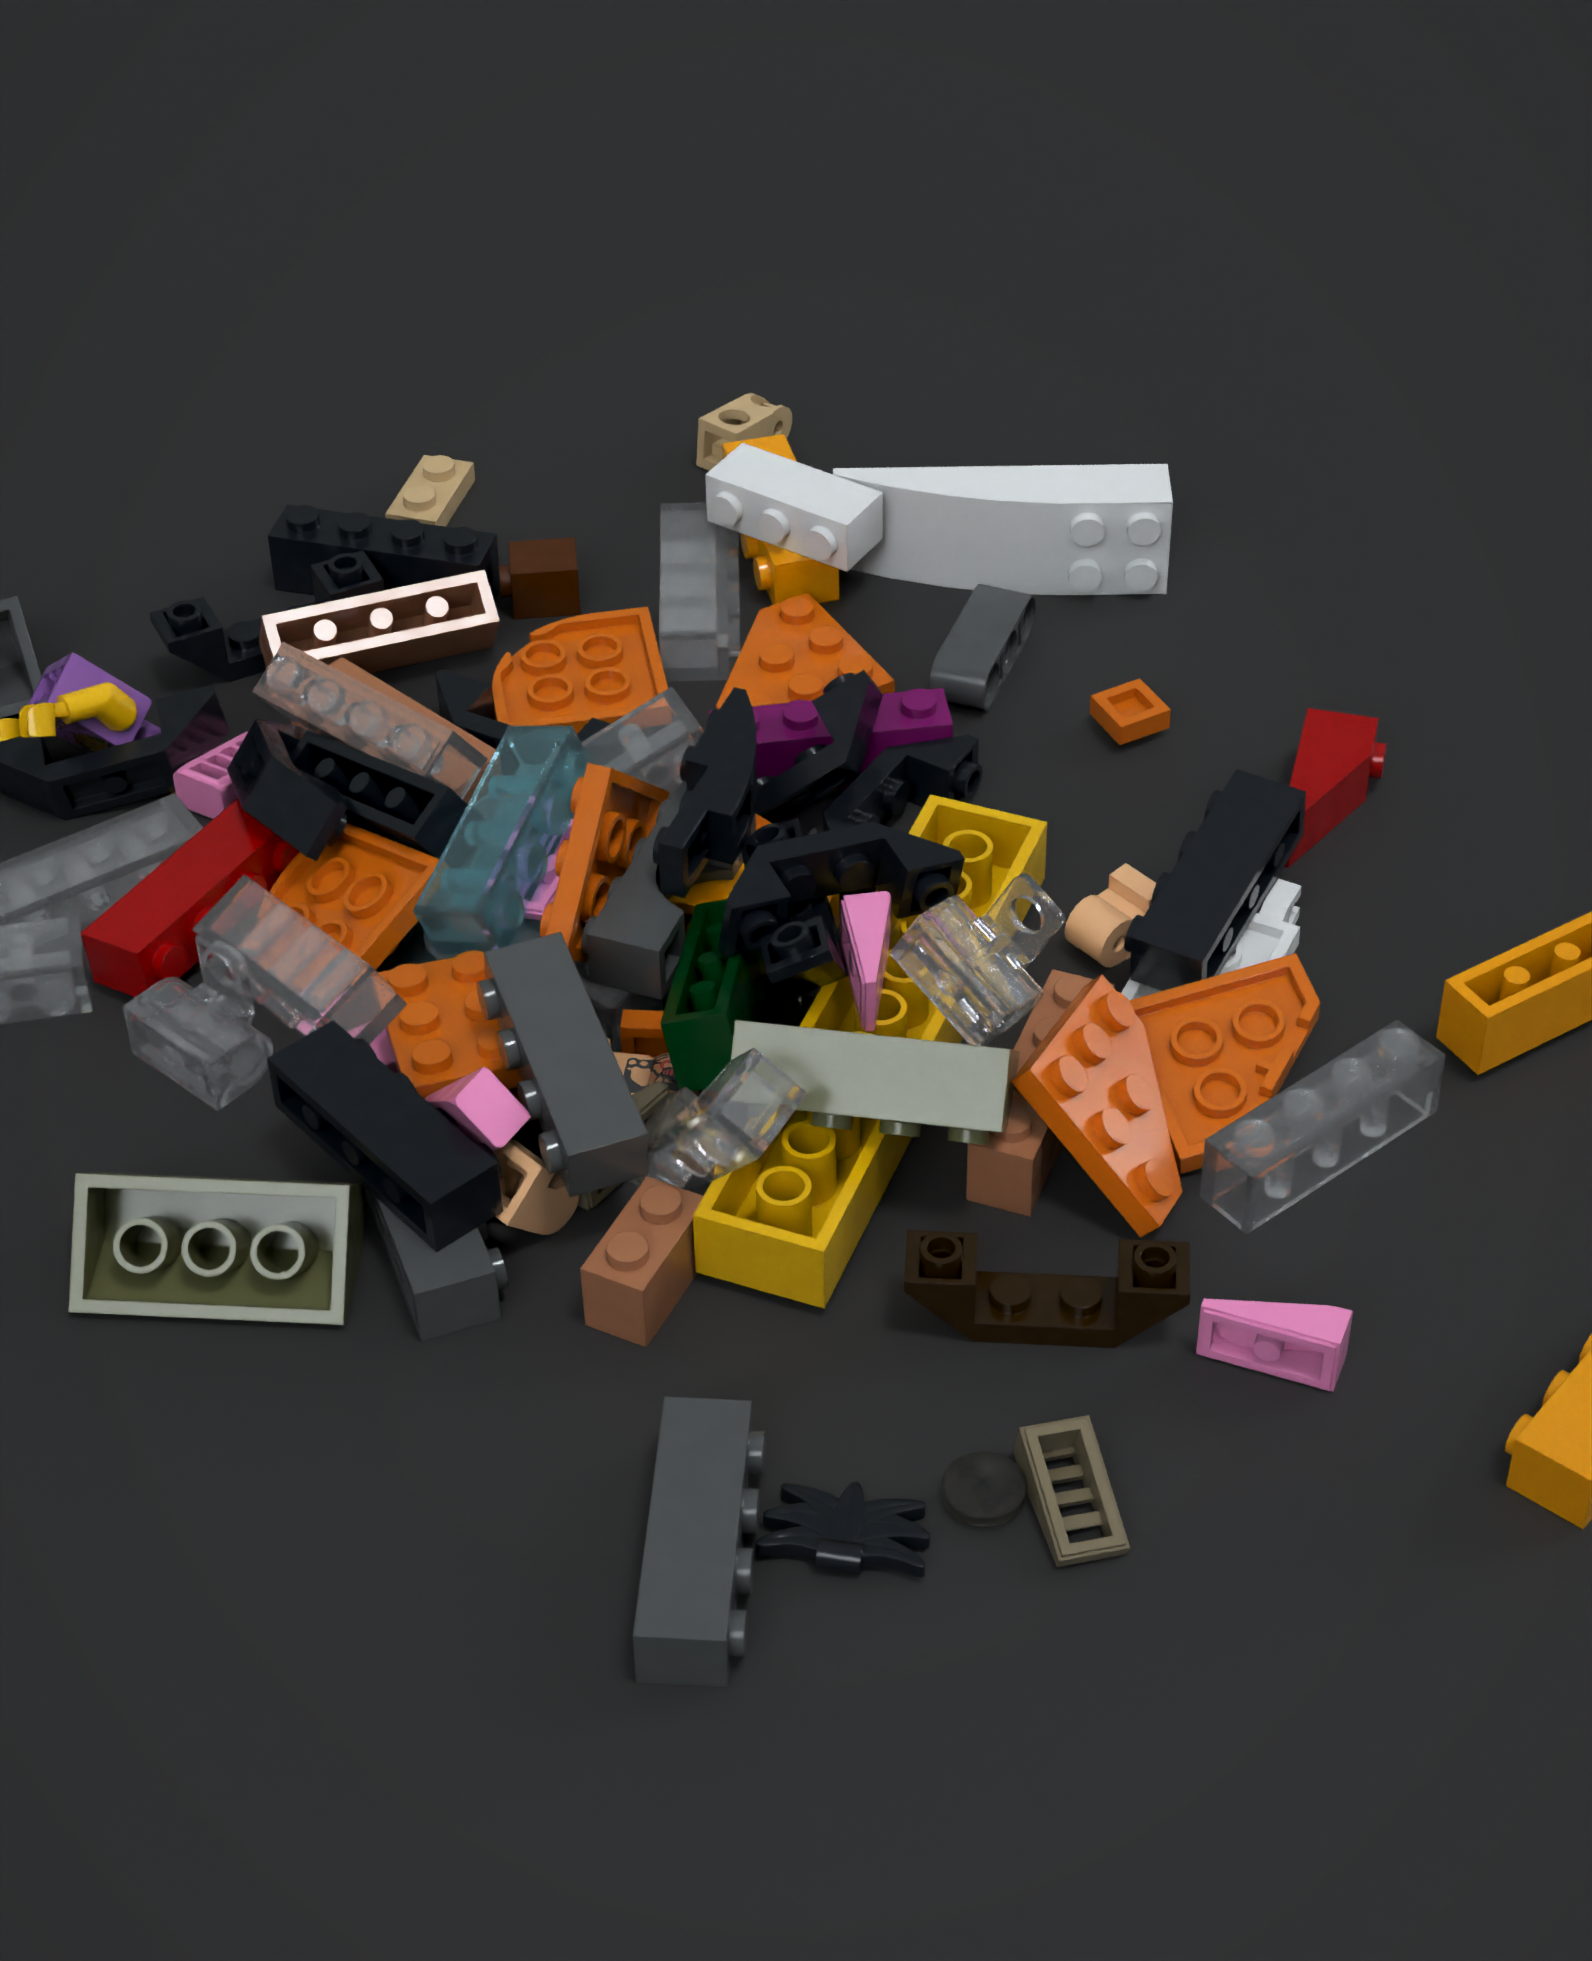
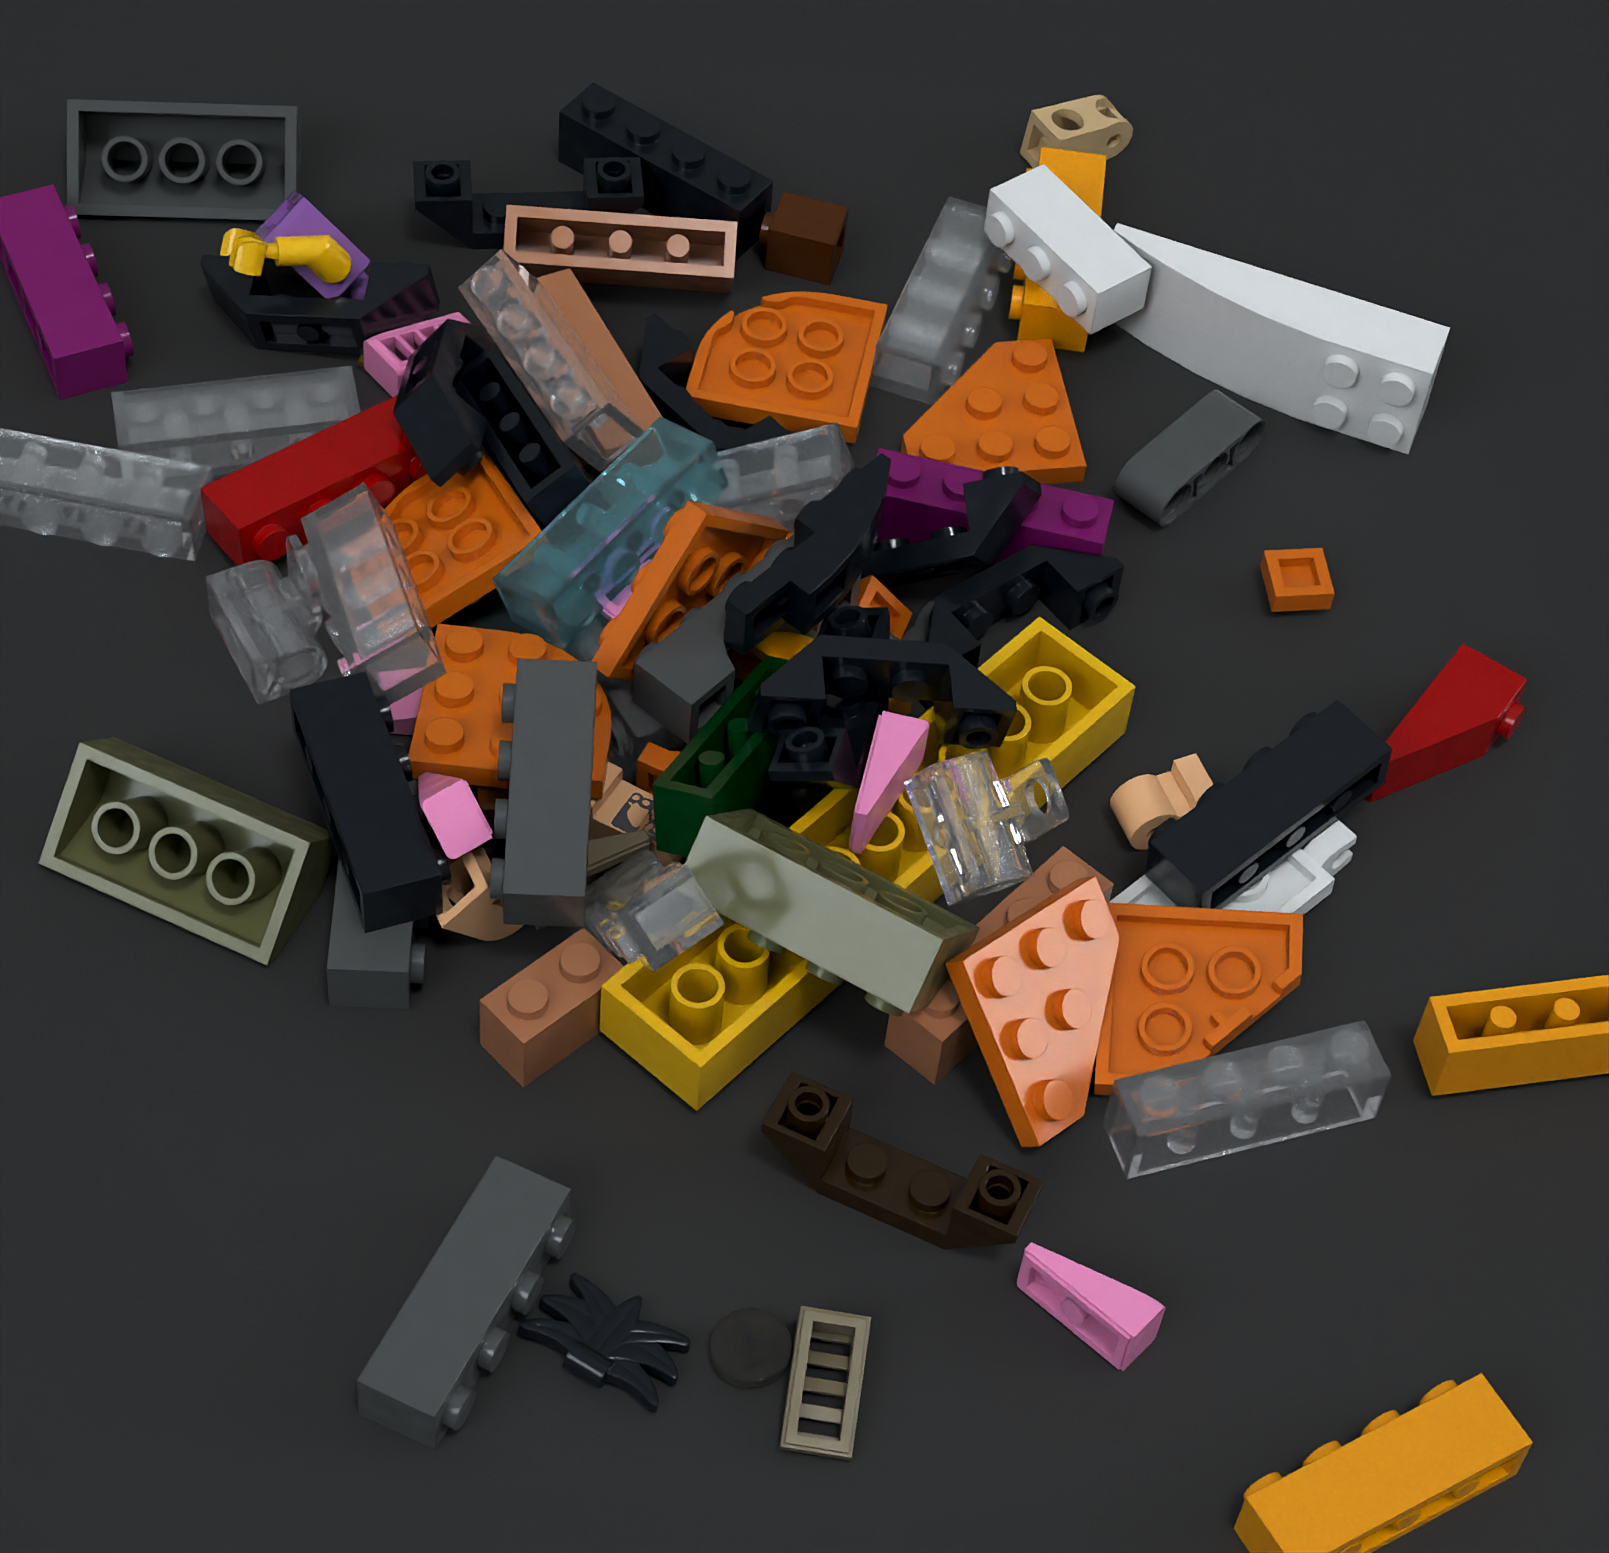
camera: 15 degrees right, 10 degrees up
(433, 490) = (747, 106): tan plate -> none

